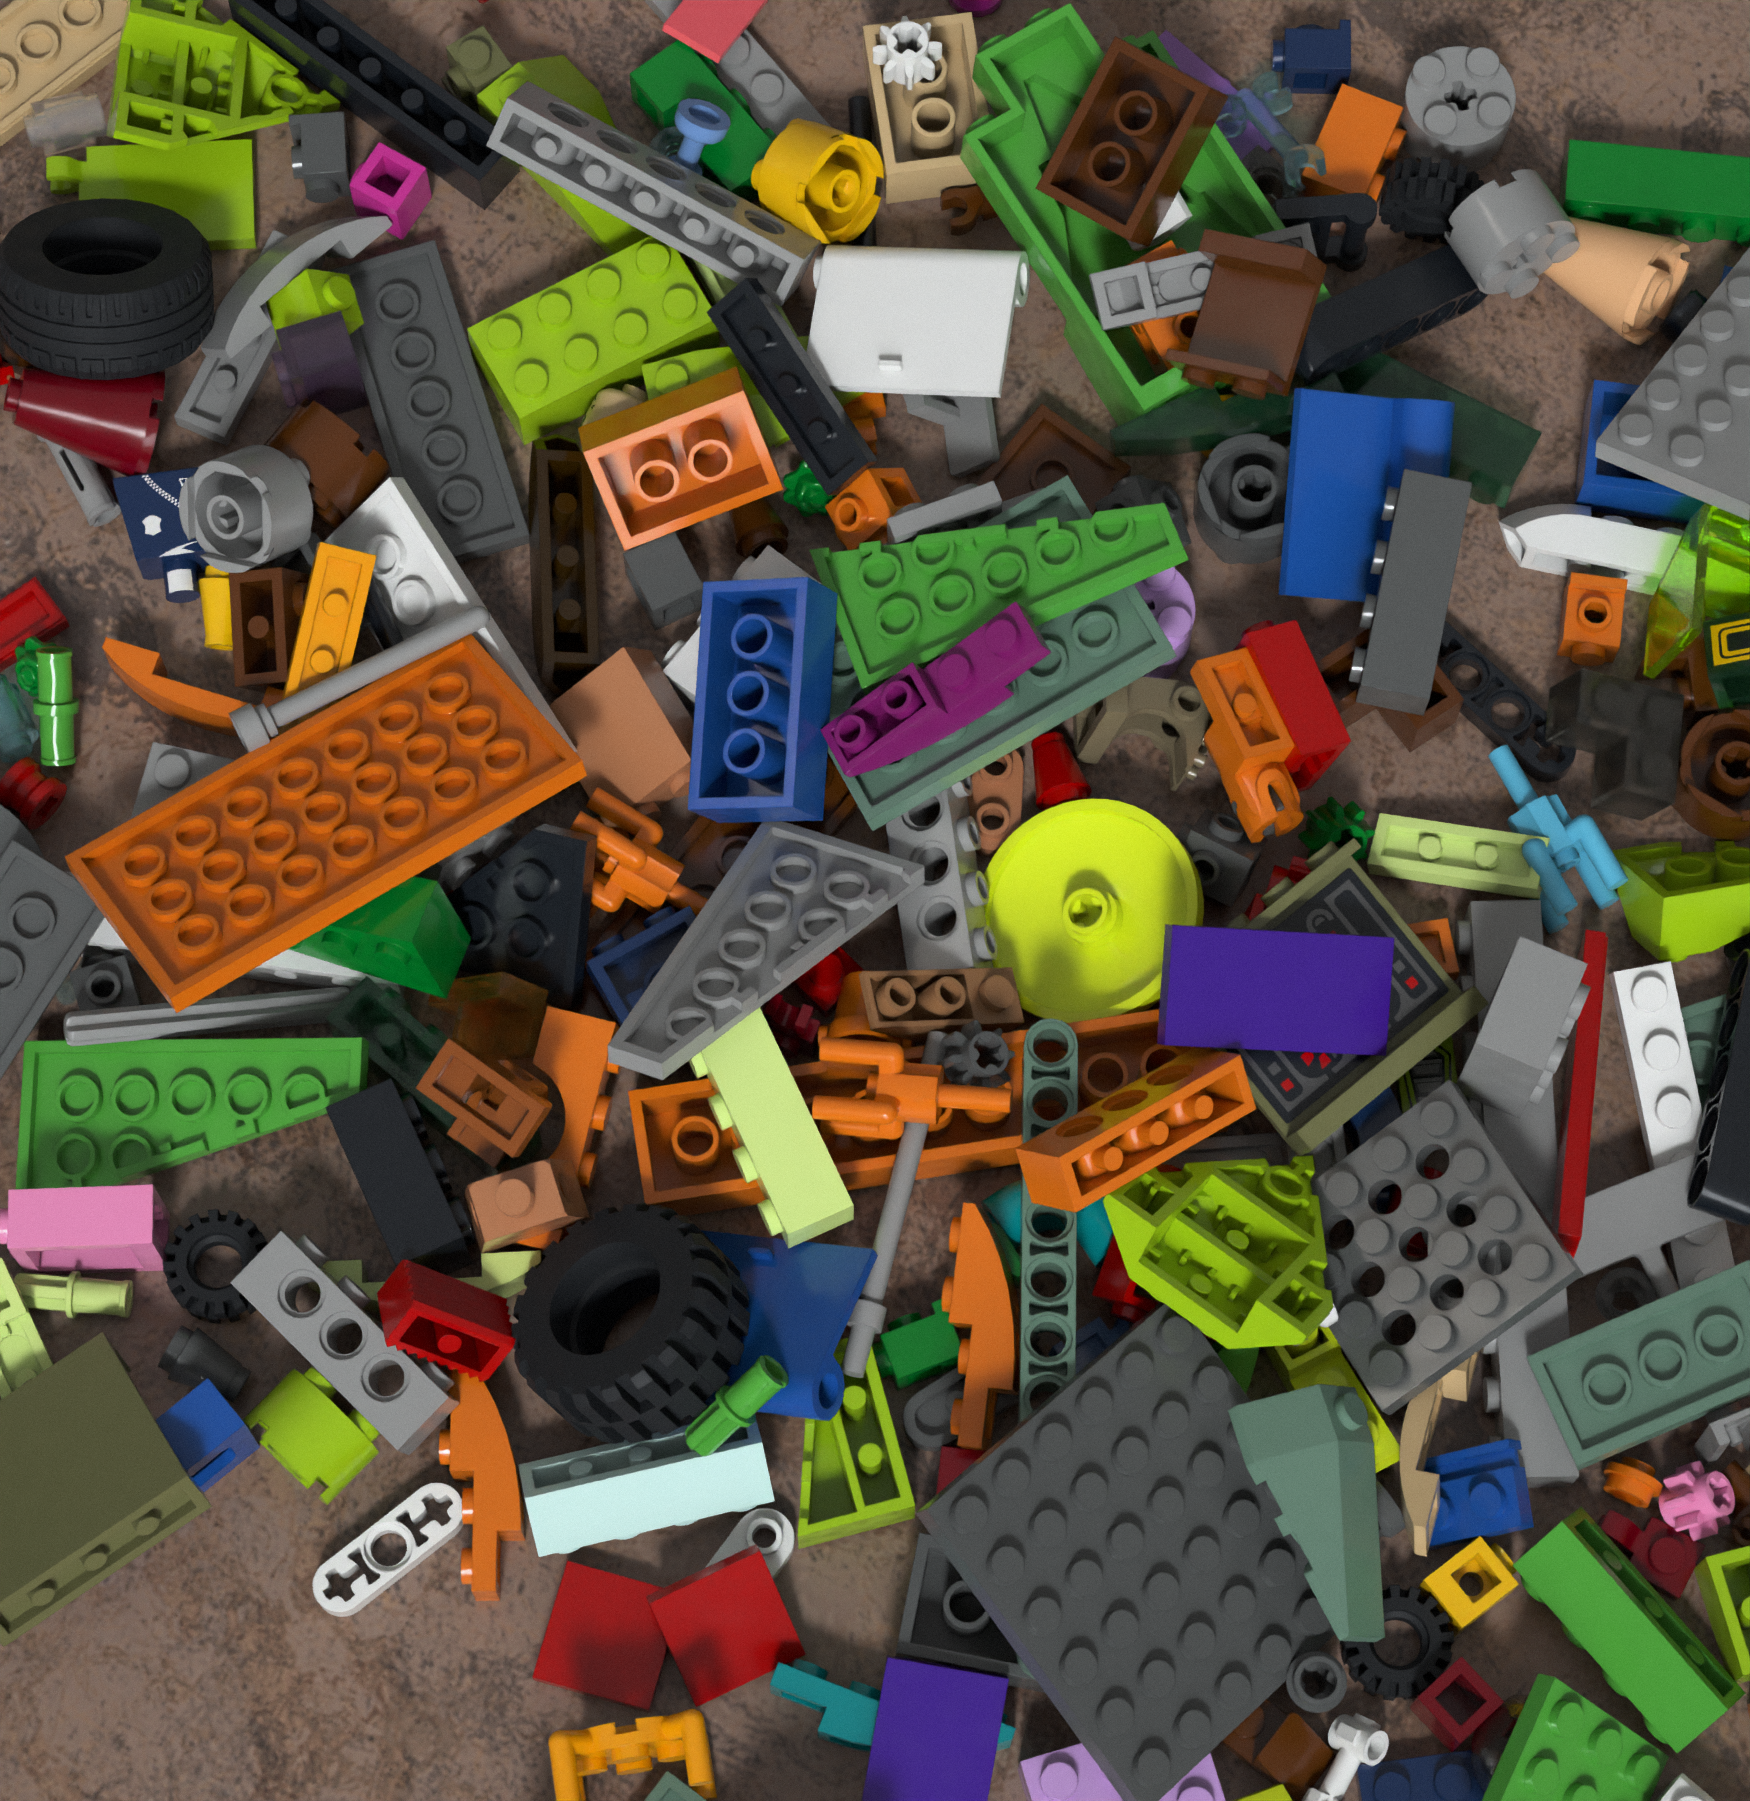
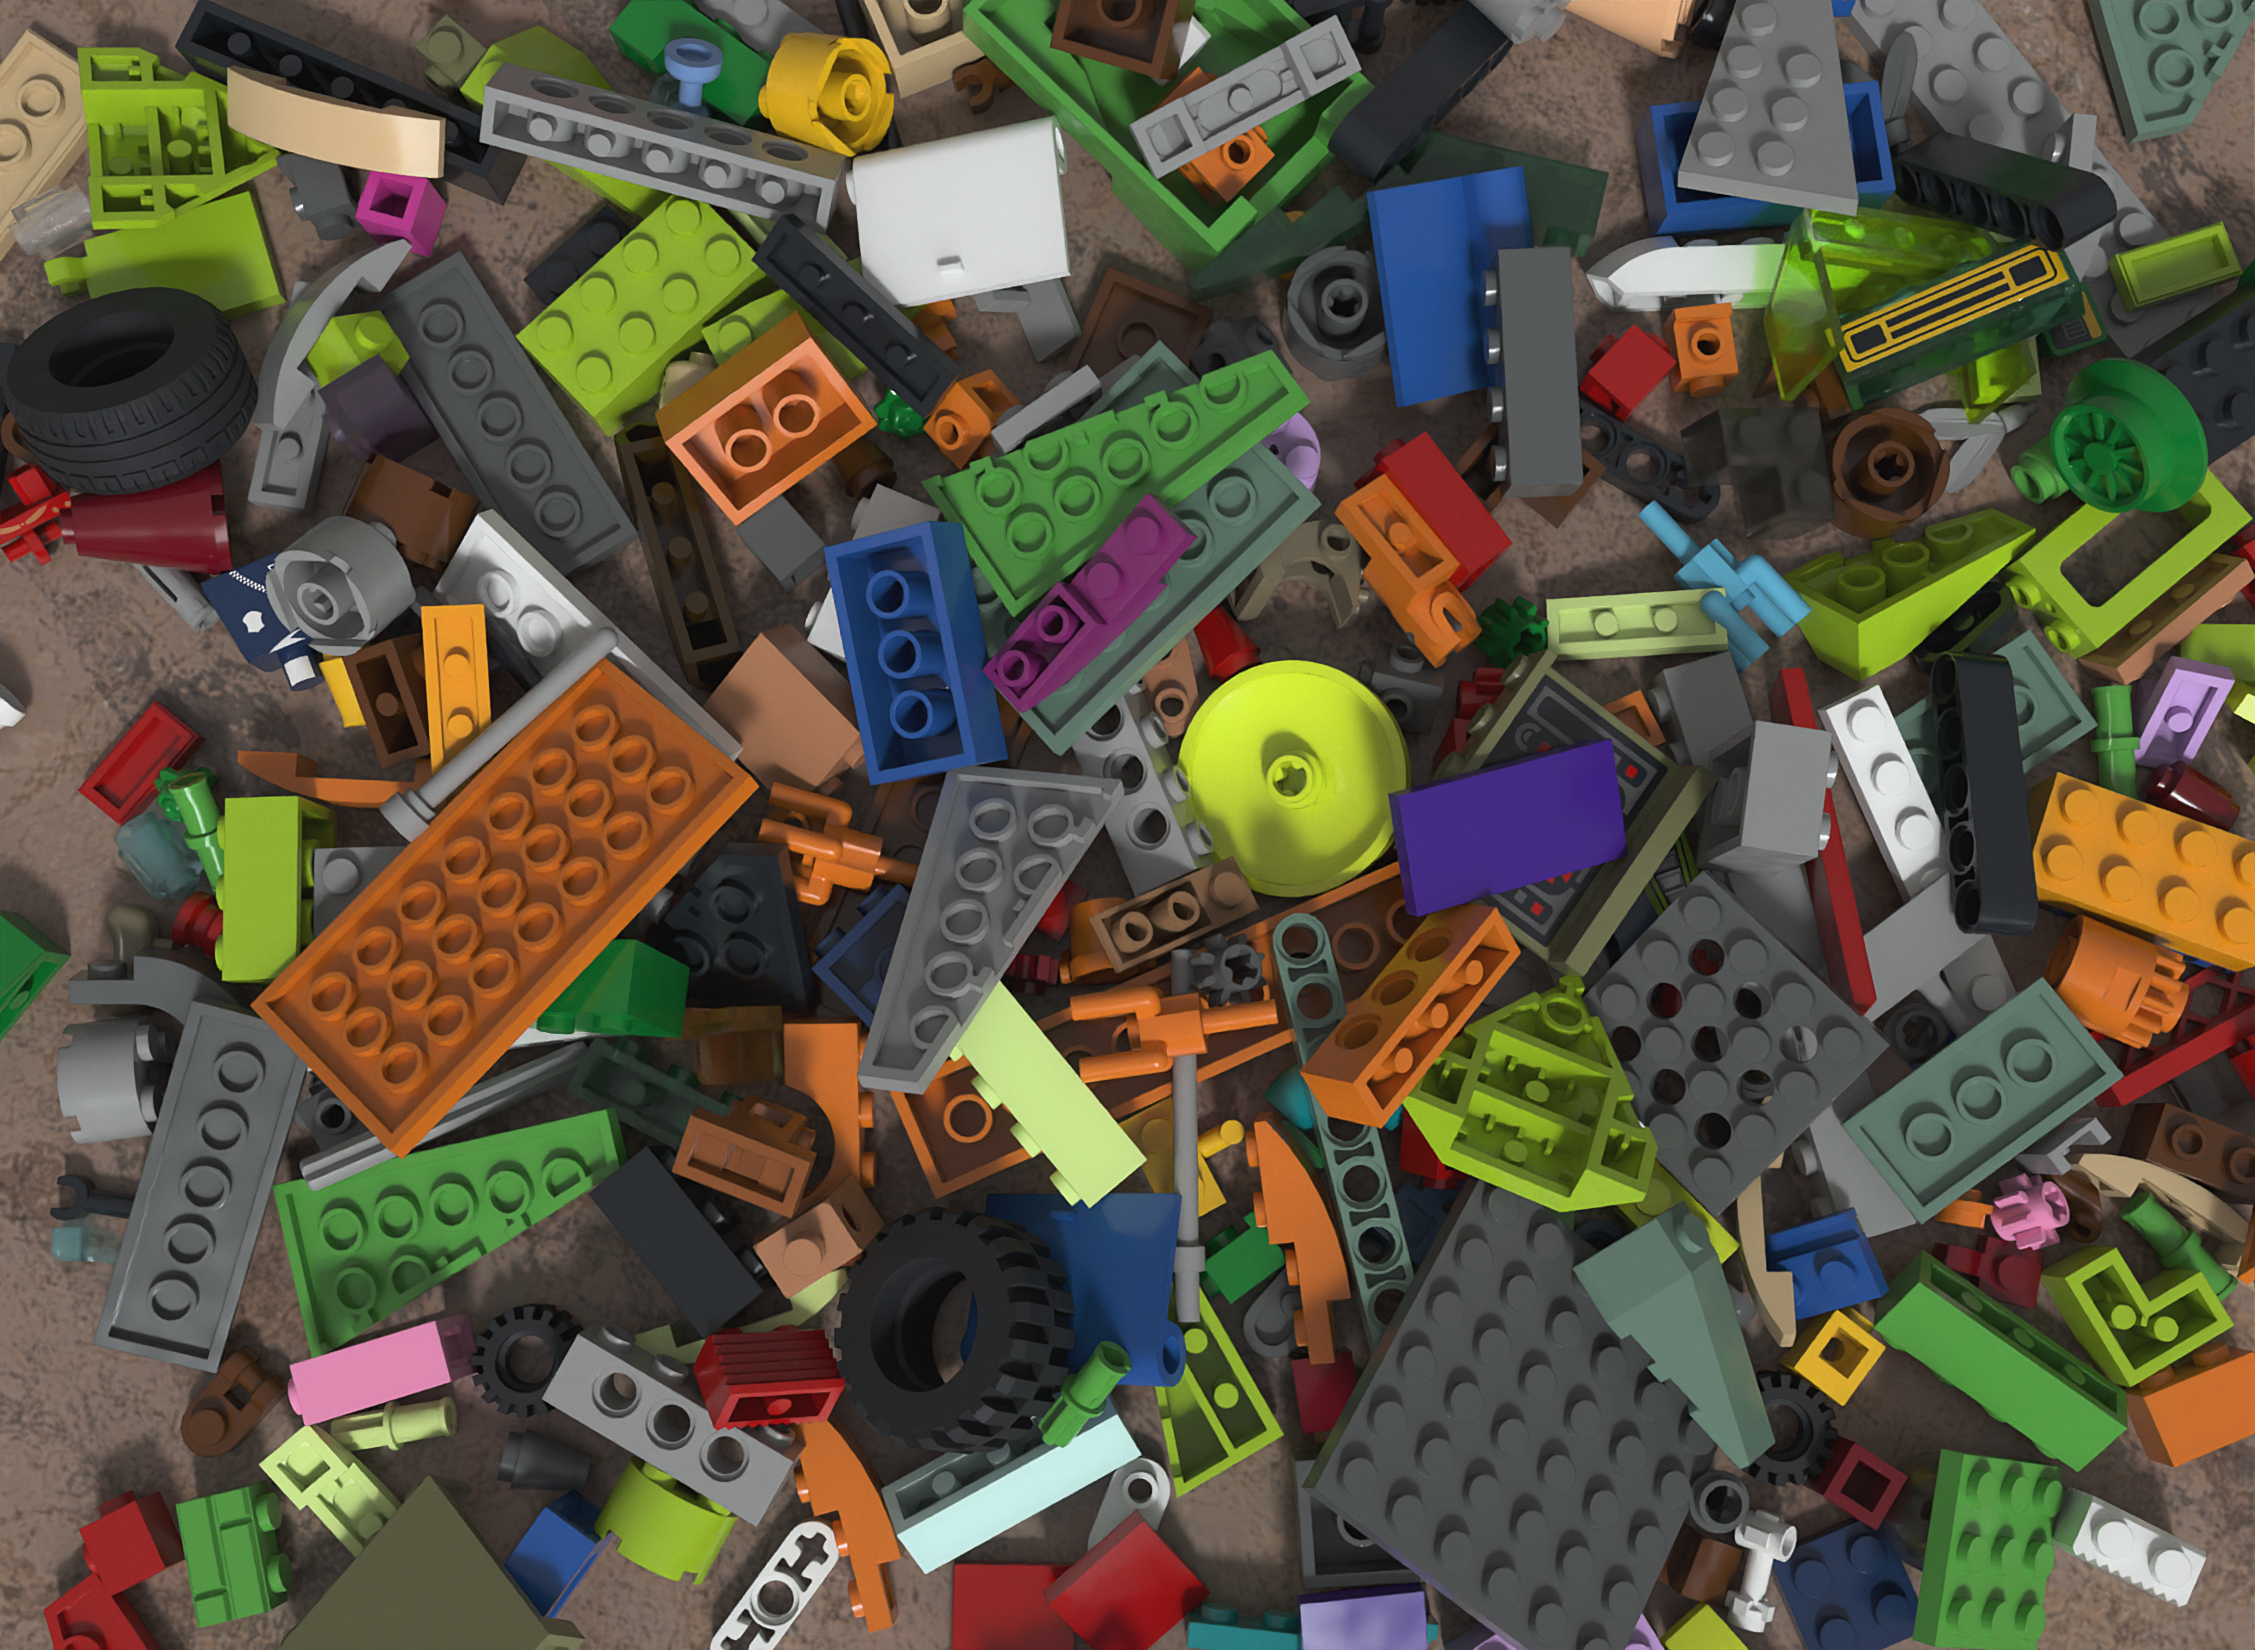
camera: 15 degrees left, 10 degrees up
(103, 759) = (268, 883): none -> lime brick
(353, 101) = (333, 128): none -> tan slope
(541, 271) = (577, 255): none -> black plate
(862, 1230) = (1153, 1136): none -> yellow plate
(1251, 315) = (1303, 126): reddish brown panel -> none
(1513, 622) = (1626, 372): none -> red brick

